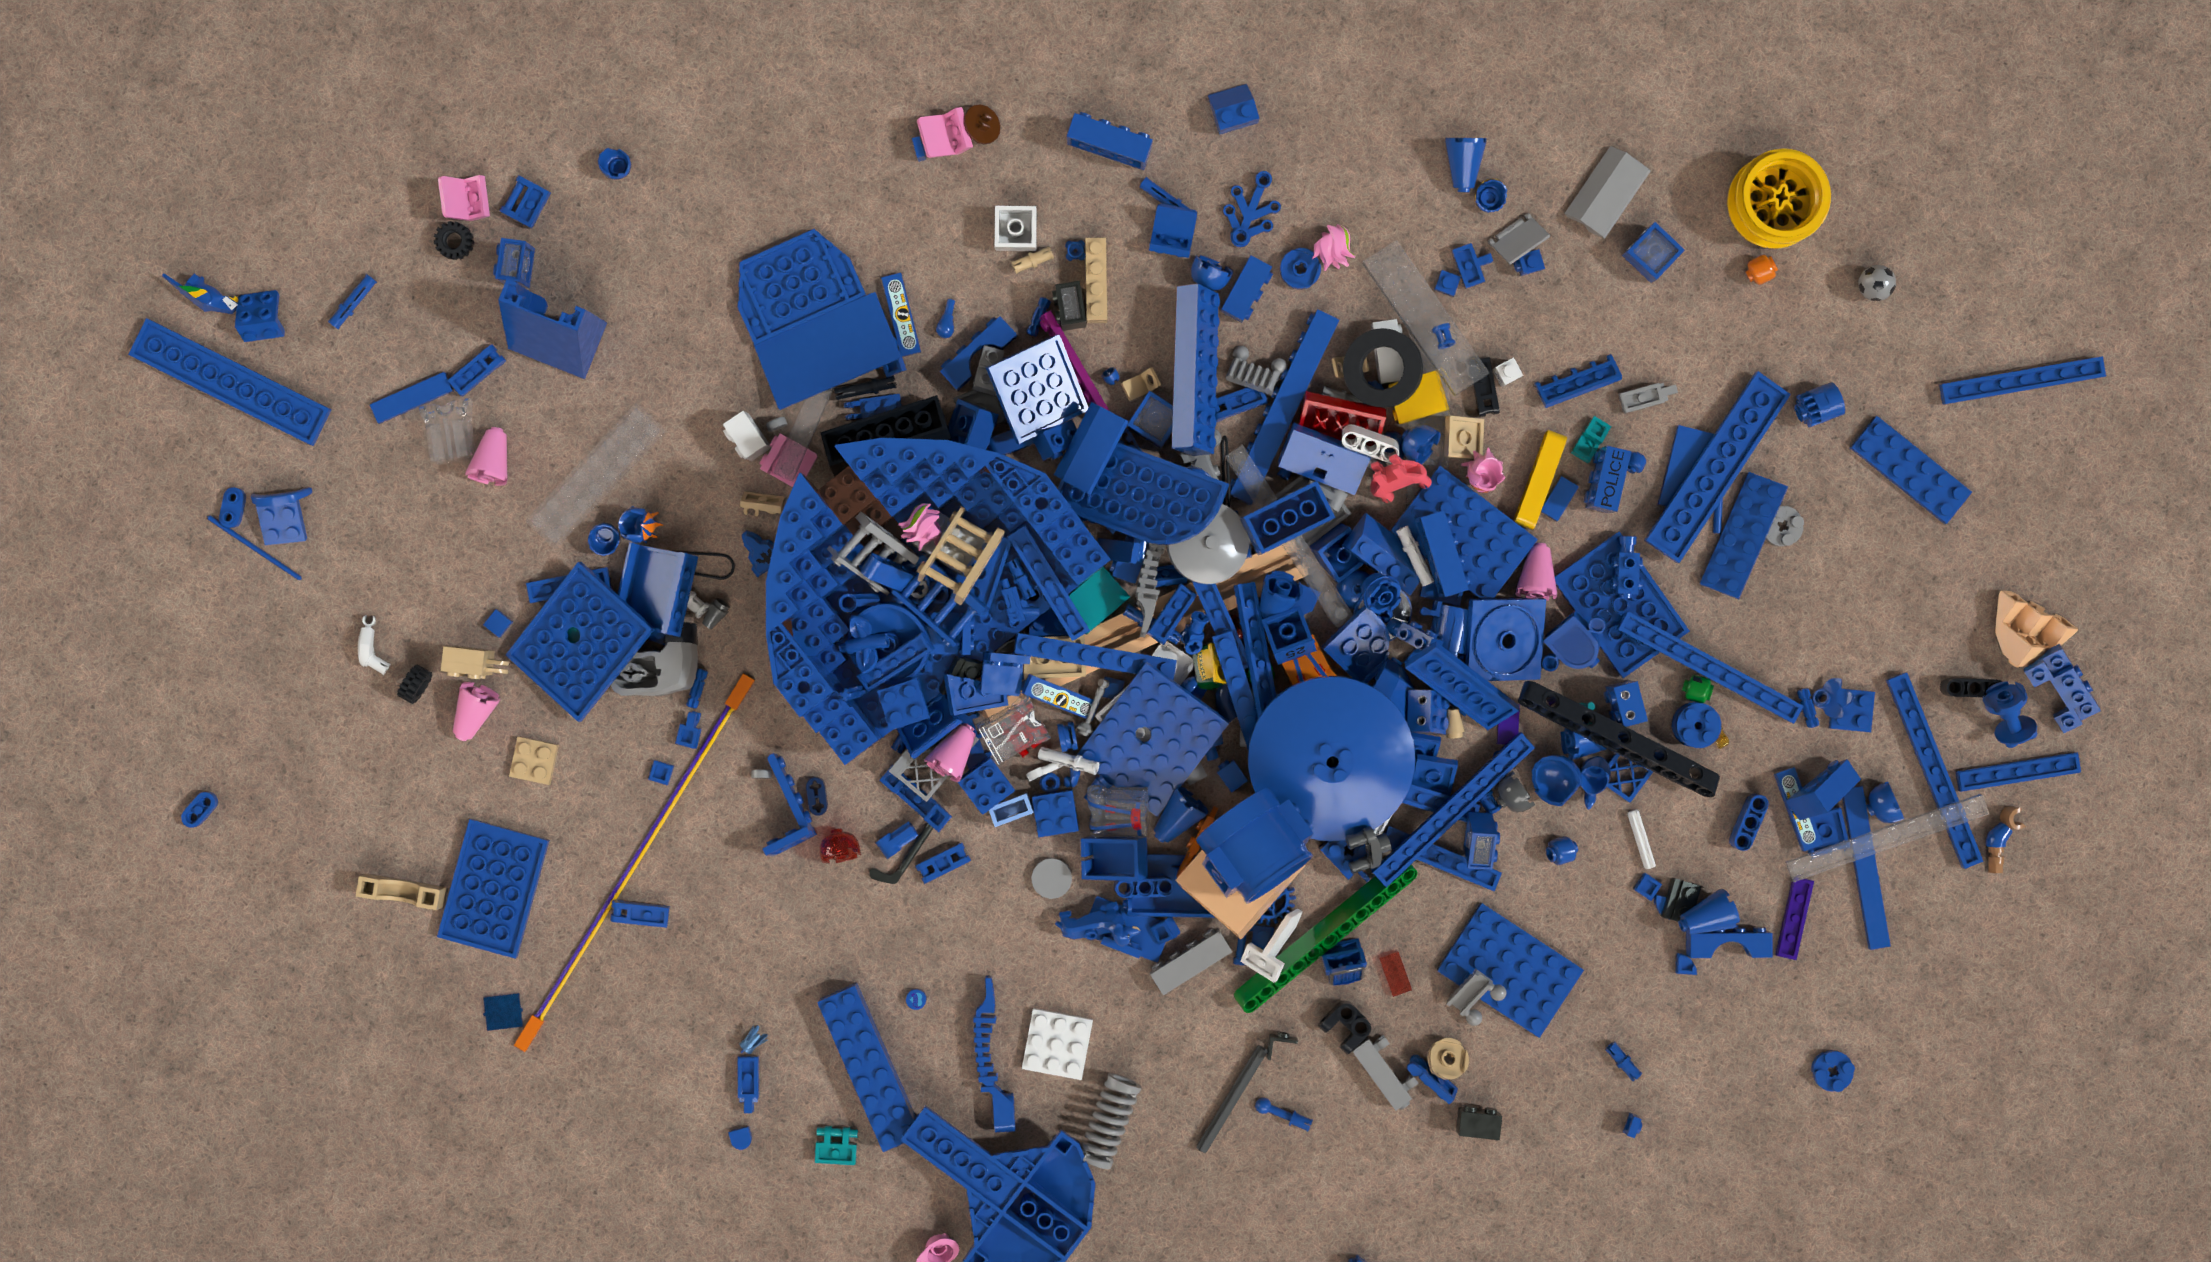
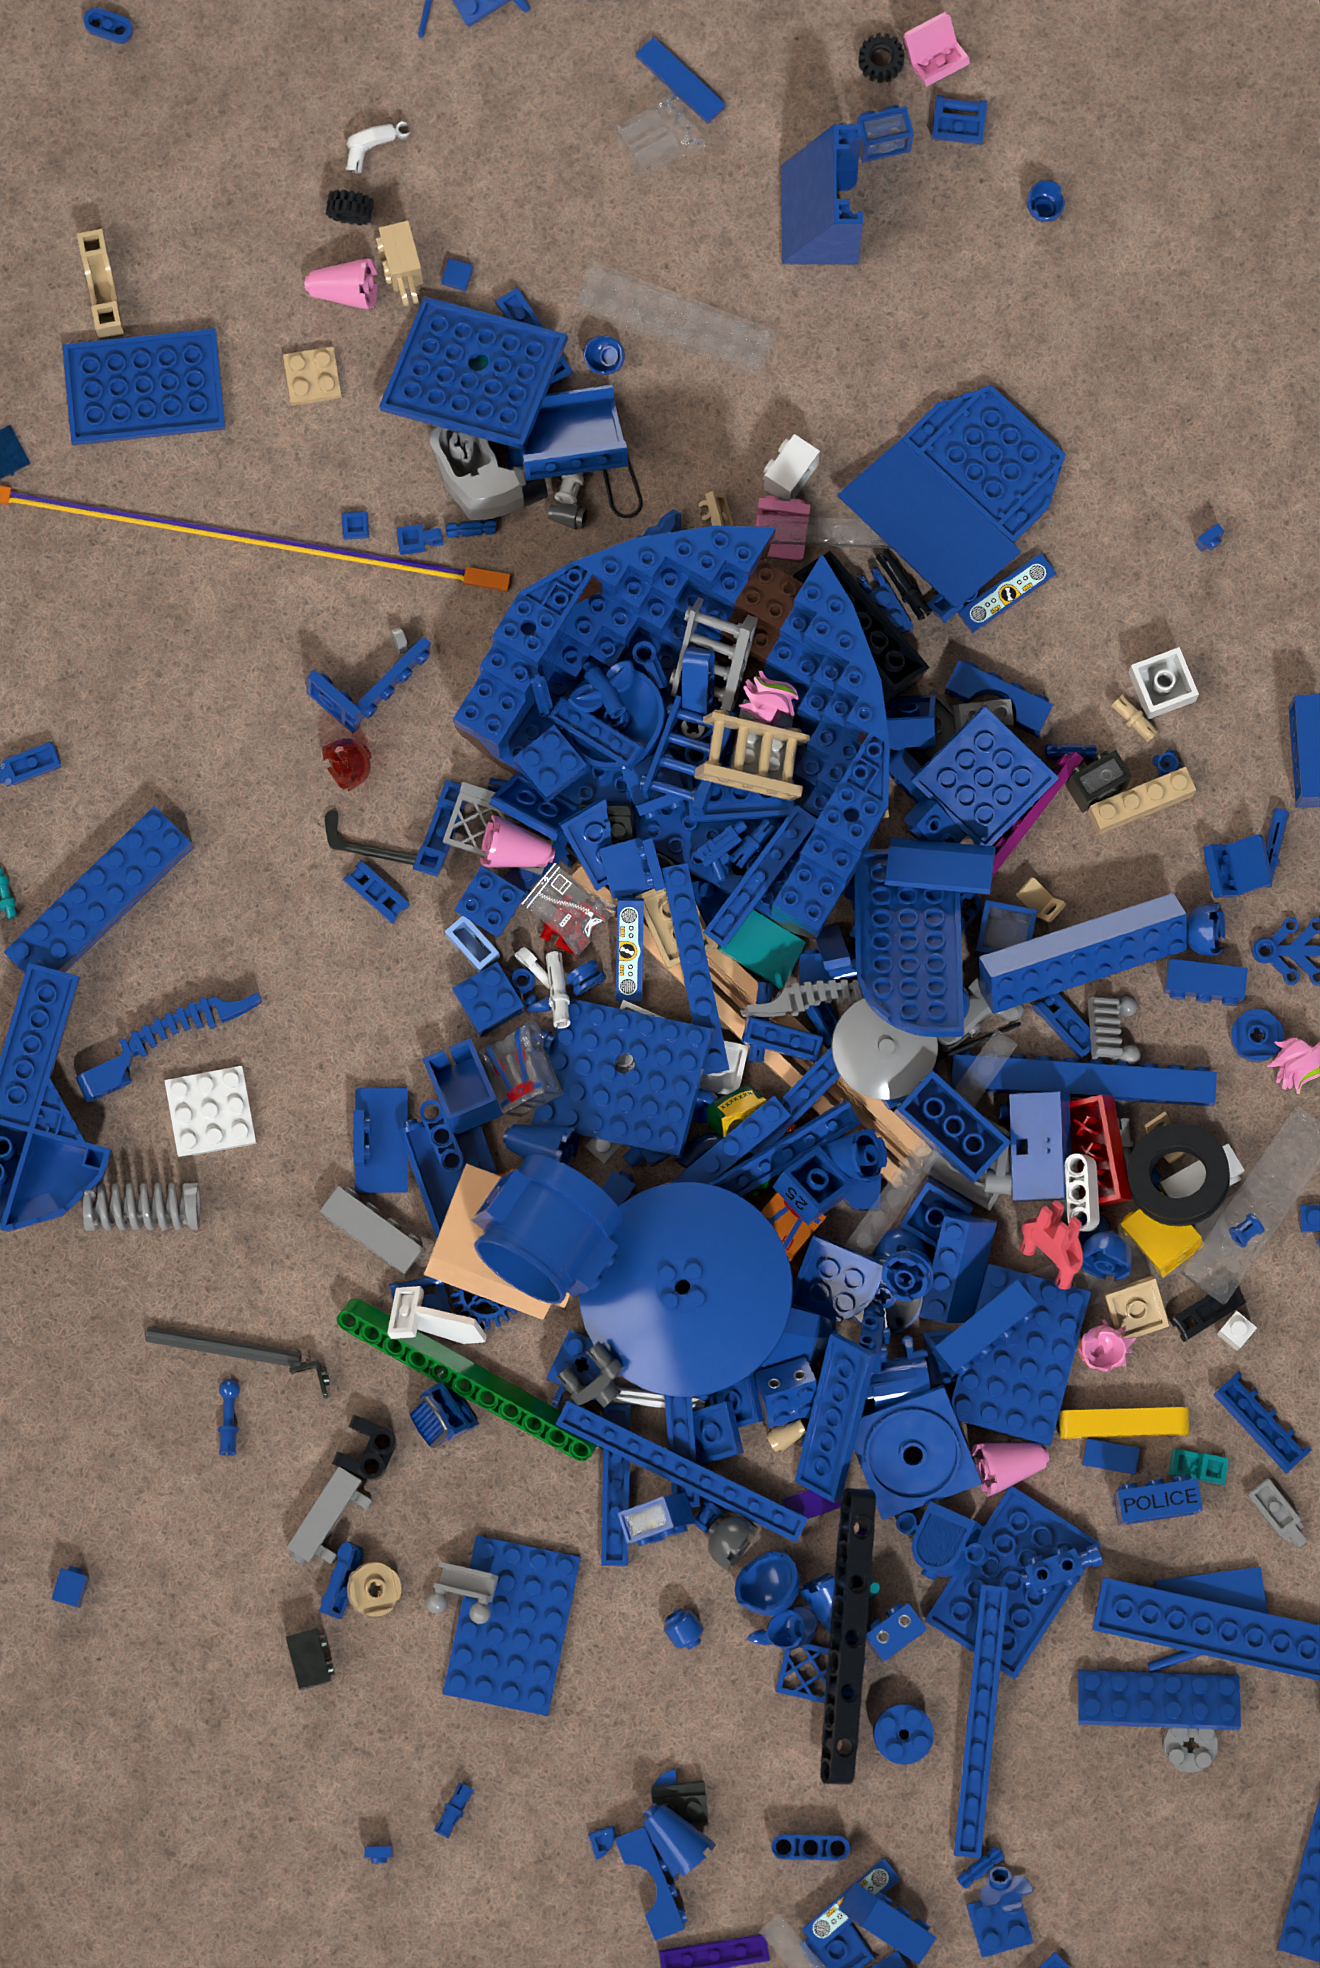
camera: 70 degrees right, 10 degrees down
(476, 370) = (741, 139): blue plate -> none
(490, 459) = (645, 192): bright pink cone -> none
(638, 524) = (637, 386): blue hair -> none
(640, 913) = (179, 565): blue plate -> none
(752, 1040) = (72, 748): flat silver piece -> none
(776, 424) = (819, 499): light grey tile -> none
(821, 794) = (401, 720): dark blue beam -> none
(892, 842) = (378, 823): blue piece -> none
(916, 999) = (200, 924): blue tile -> none
(944, 134) = (1239, 559): bright pink bracket -> none
(945, 326) = (1013, 648): blue piece -> none
(982, 124) = (1269, 598): reddish brown piece -> none
(1051, 878) = (408, 1027): light grey tile -> none
(1085, 727) = (604, 995): light grey piece -> none
(1096, 924) = (375, 1099): blue animal -> none
(1110, 375) = (1035, 862): blue hinge -> none
(1114, 688) = (665, 1007): blue plate -> none
(1165, 930) = (398, 1185): blue slope -> none
(1193, 633) = (768, 1075): blue connector -> none
(1395, 974) = (452, 1486): clear red tile -> none
(1415, 556) = (970, 1301): white pin -> none
(1636, 463) = (1193, 1533): blue piece -> none
(1641, 839) = (736, 1723): white axle -> none
(1647, 886) = (680, 1755): blue tile -> none
(1698, 689) = (948, 1718): green head -> none
(1723, 740) = (896, 1776): clear yellow hand -> none

